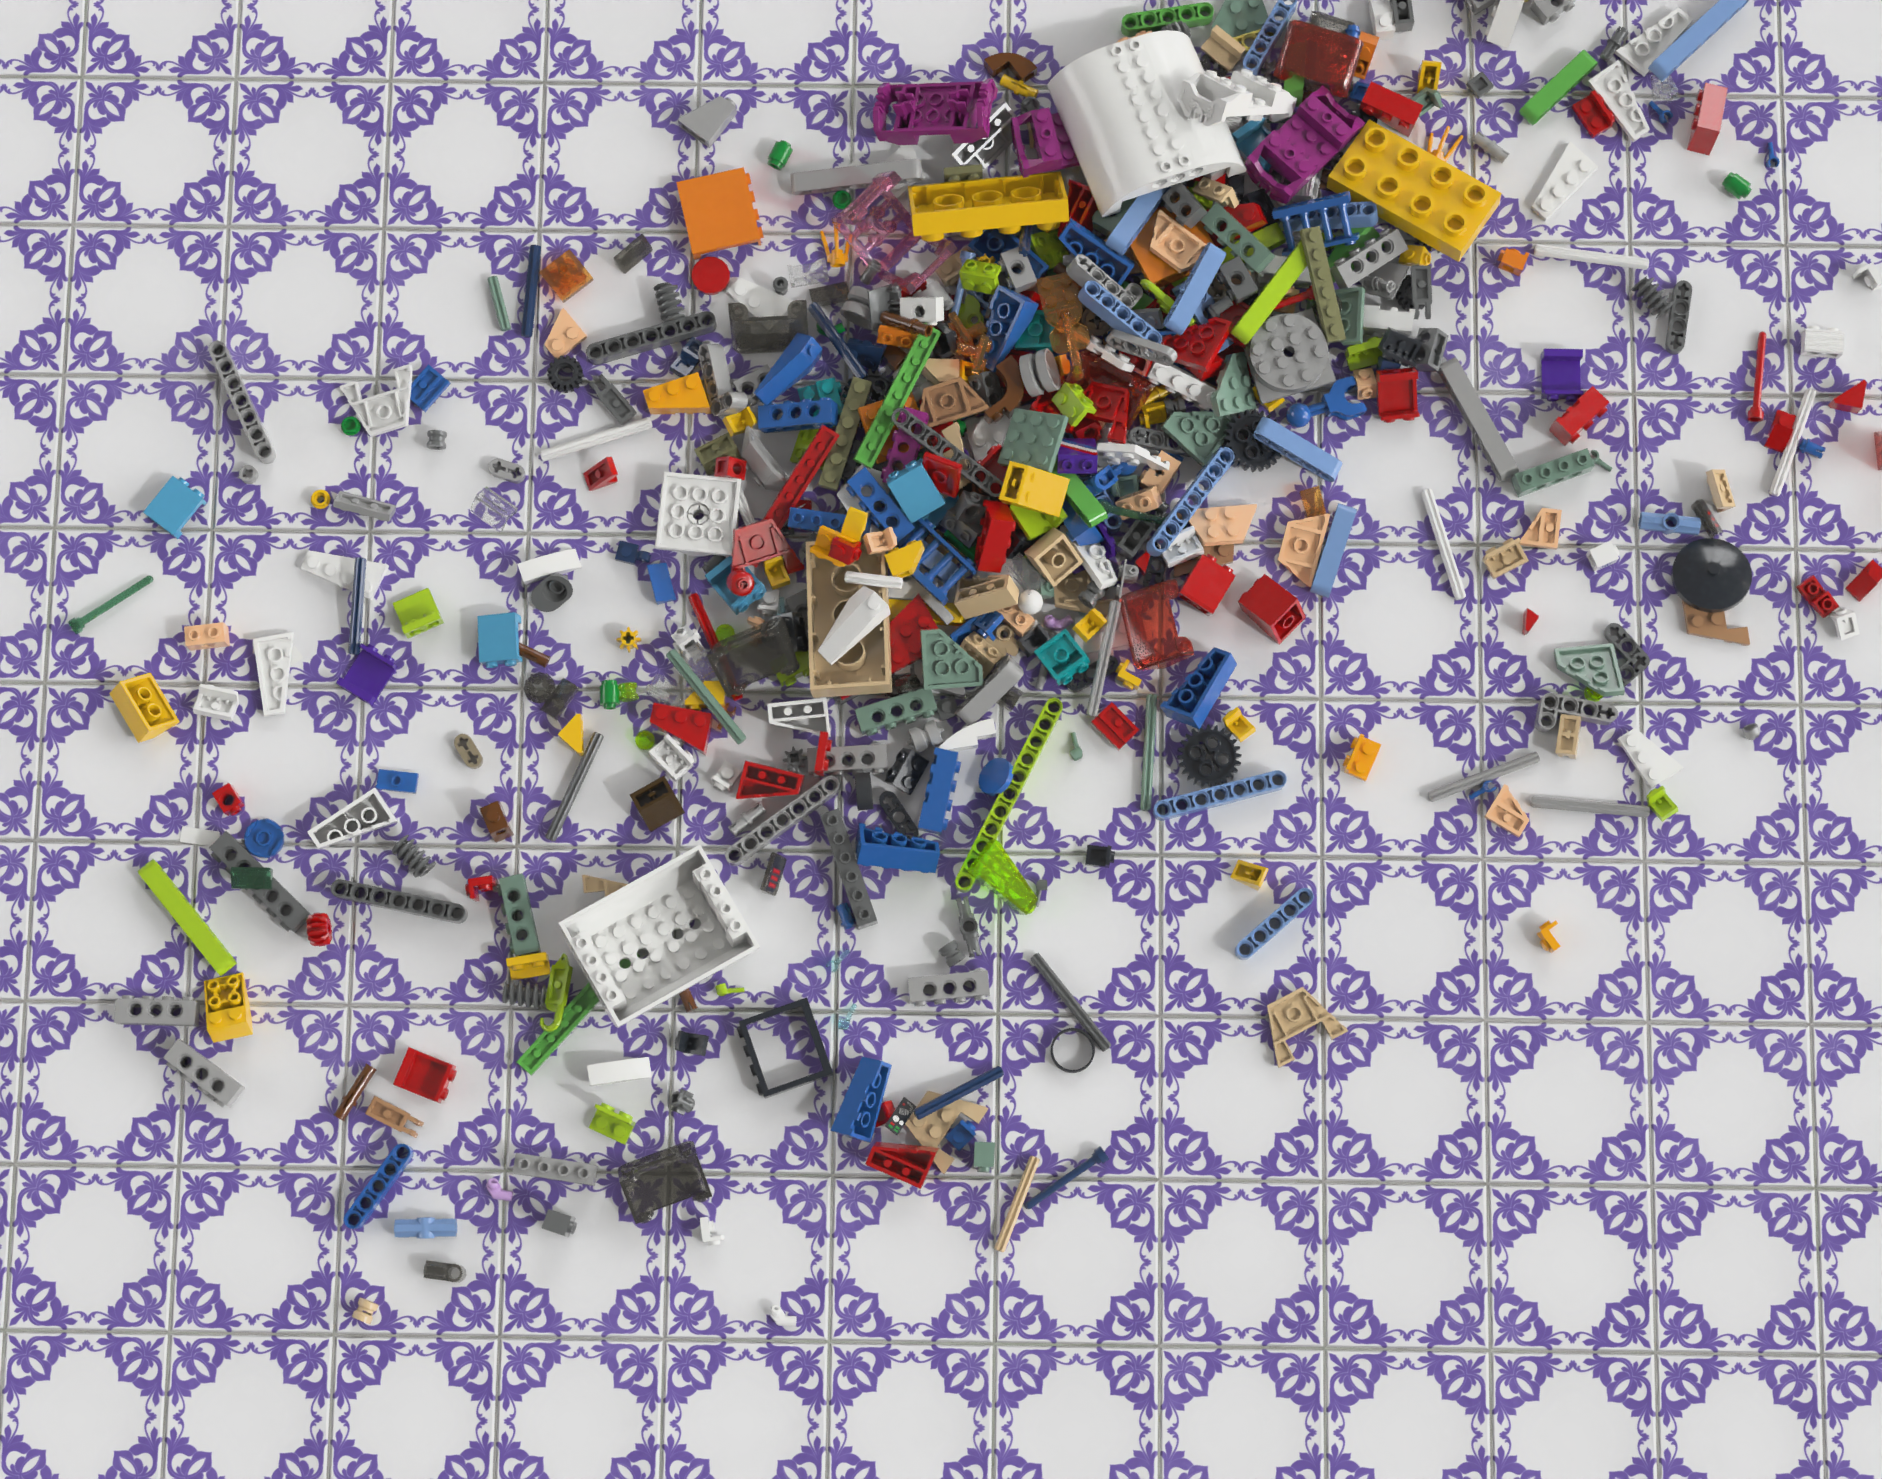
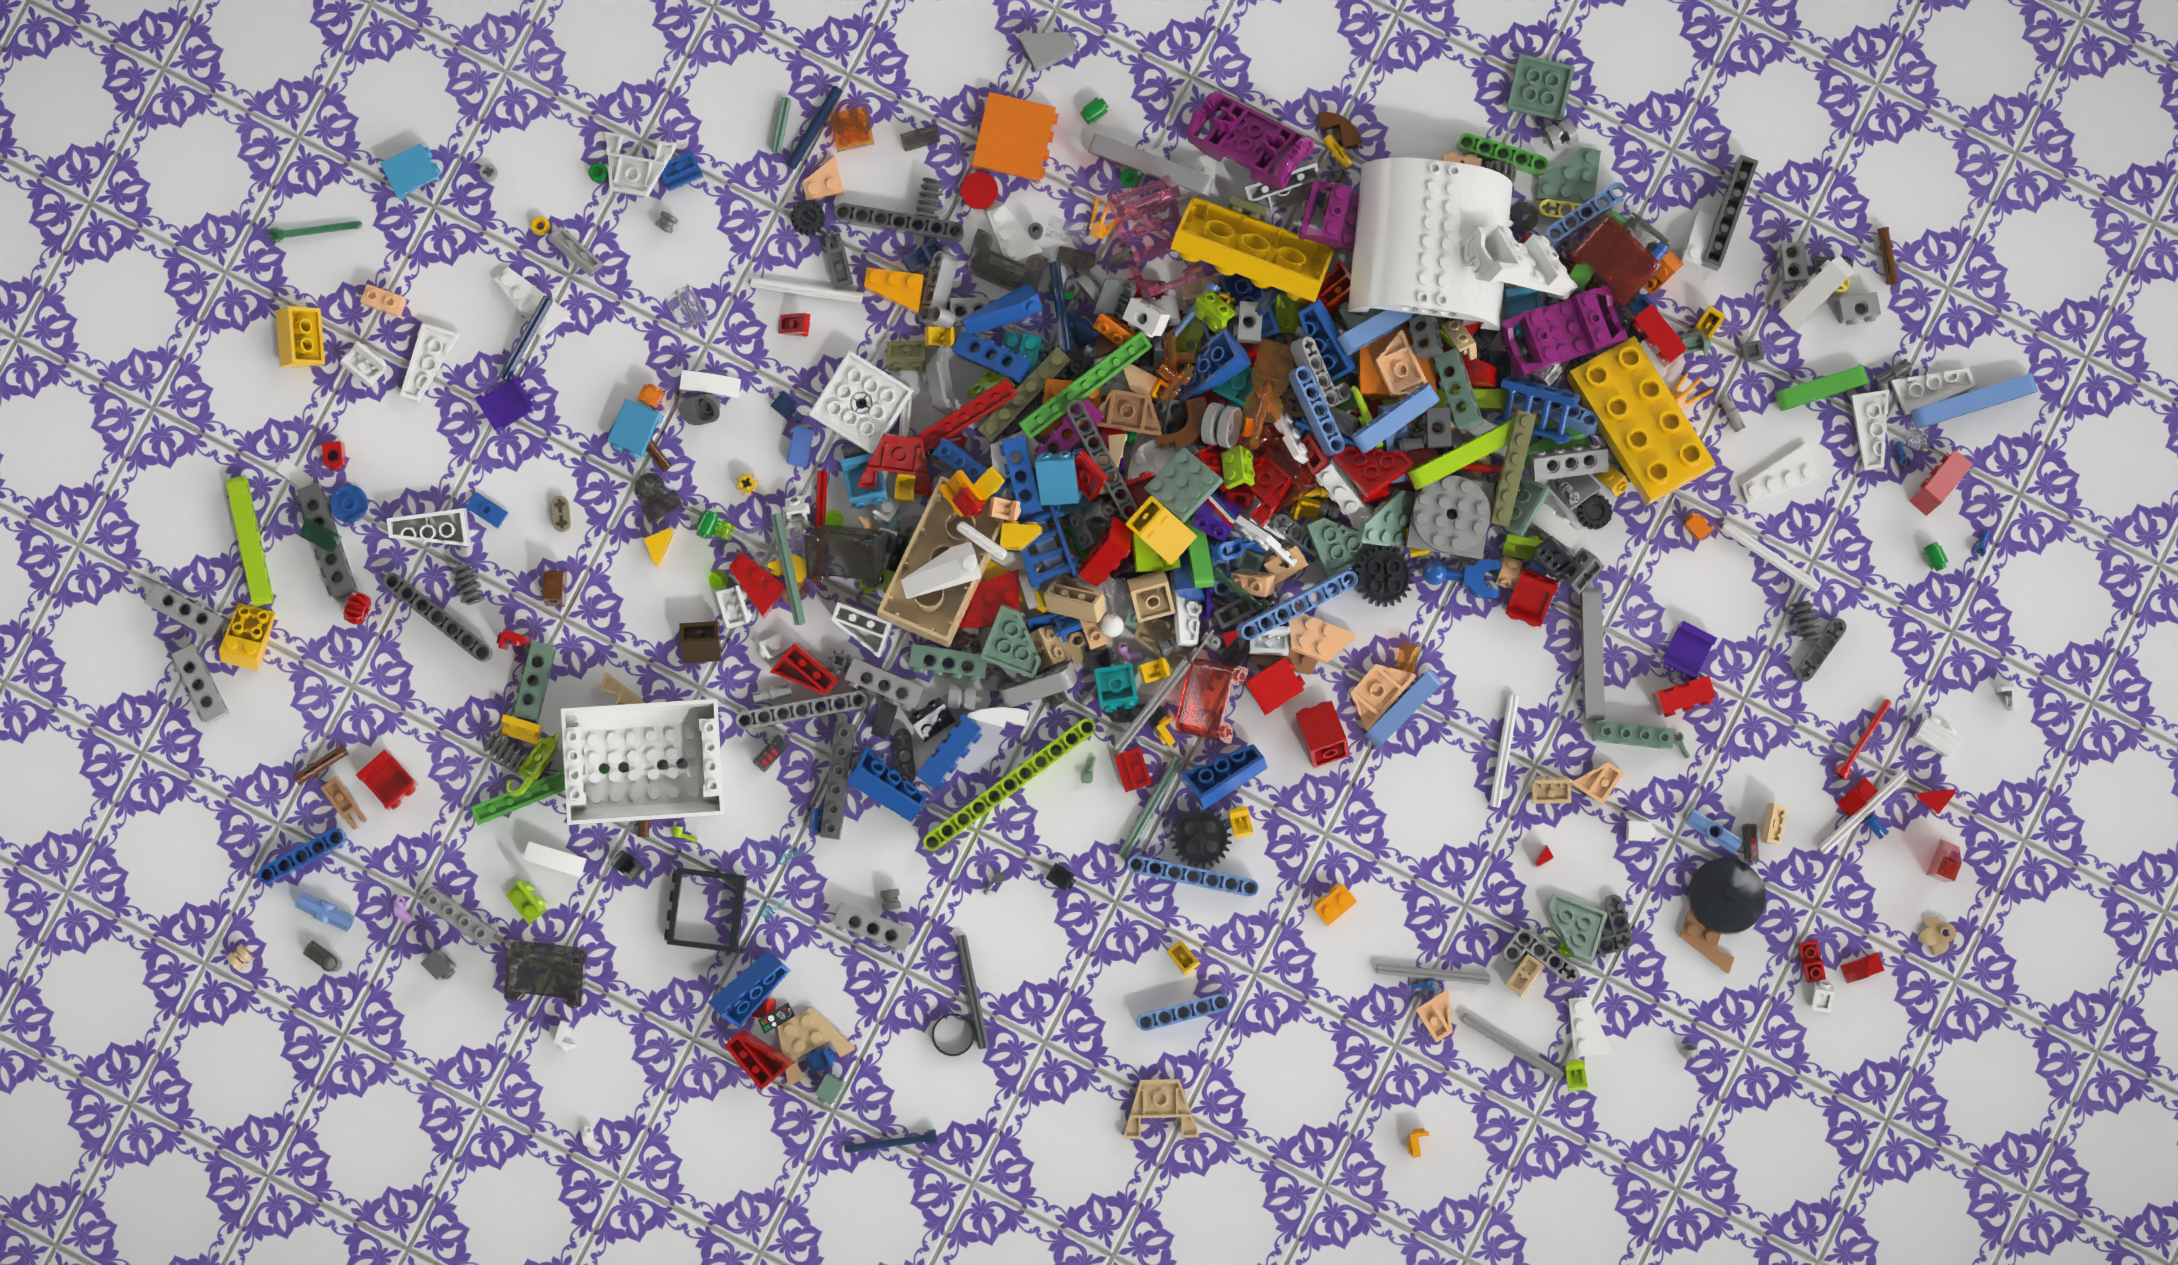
camera: 25 degrees right, 5 degrees up
(236, 395) = (510, 96): light grey beam -> none
(418, 613) = (575, 369): lime bracket -> none
(499, 602) = (651, 395): none -> orange brick
(505, 475) = (711, 283): light grey beam -> none
(574, 786) = (637, 590): dark grey axle -> none
(682, 1101) = (595, 912): dark grey gear -> none
(730, 467) = (909, 376): red brick -> none
(735, 579) = (866, 483): red head -> none
(823, 746) = (867, 664): red plate -> none
(911, 325) = (1129, 329): reddish brown pin -> none
(958, 1092) = (831, 1023): dark blue axle -> none
(970, 937) = (918, 872): dark grey pin -> none
(995, 776) = (1005, 763): blue tile -> none
(1001, 876) = (965, 852): clear neon green slope -> none
(1017, 1203) = (838, 1143): tan axle -> none
(1122, 341) = (1321, 448): light grey beam -> none
(1223, 48) = (1537, 207): tan panel -> none
(1297, 449) = (1417, 603): medium blue beam -> none
(1421, 289) = (1601, 513): dark grey hinge -> none
(1594, 114) = (1841, 428): red bracket -> none

